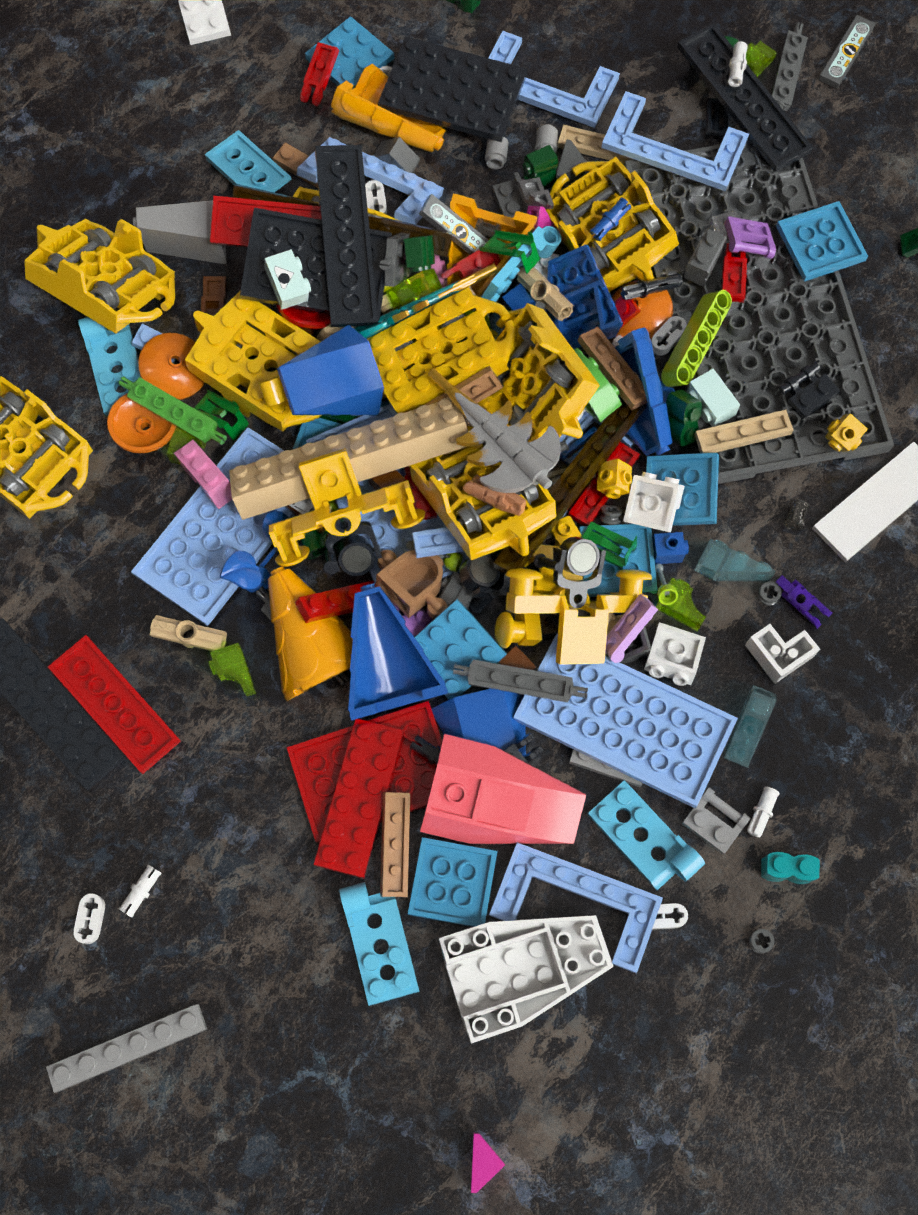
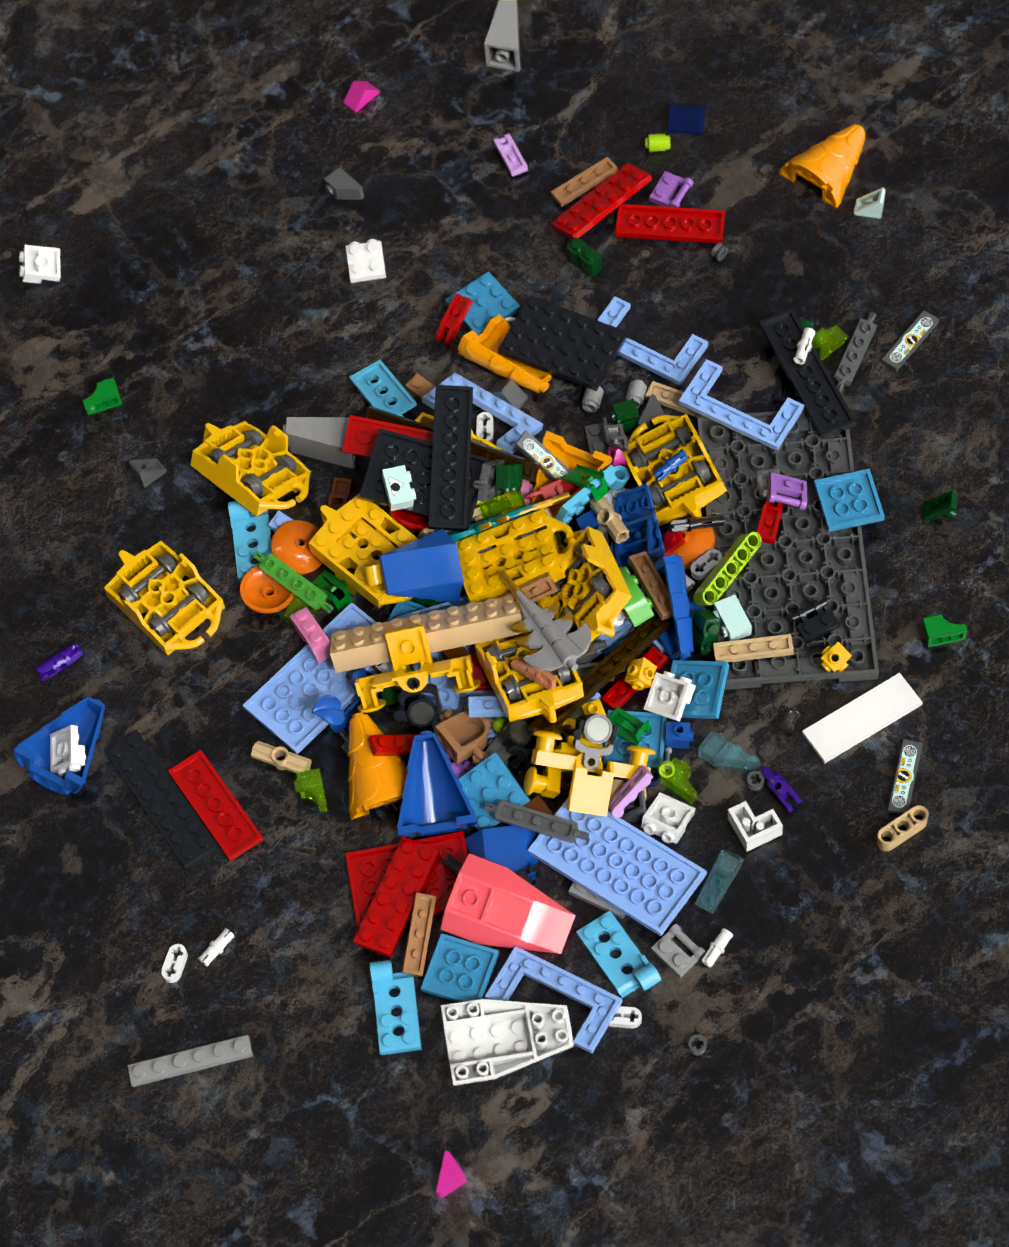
camera: 15 degrees right, 10 degrees down
(487, 229) = (571, 461): clear smoke bush -> none
(611, 514) = (635, 703): dark grey bush -> none
(705, 257) = (747, 504): dark grey brick -> none
(797, 869) = (734, 992): teal brick -> none

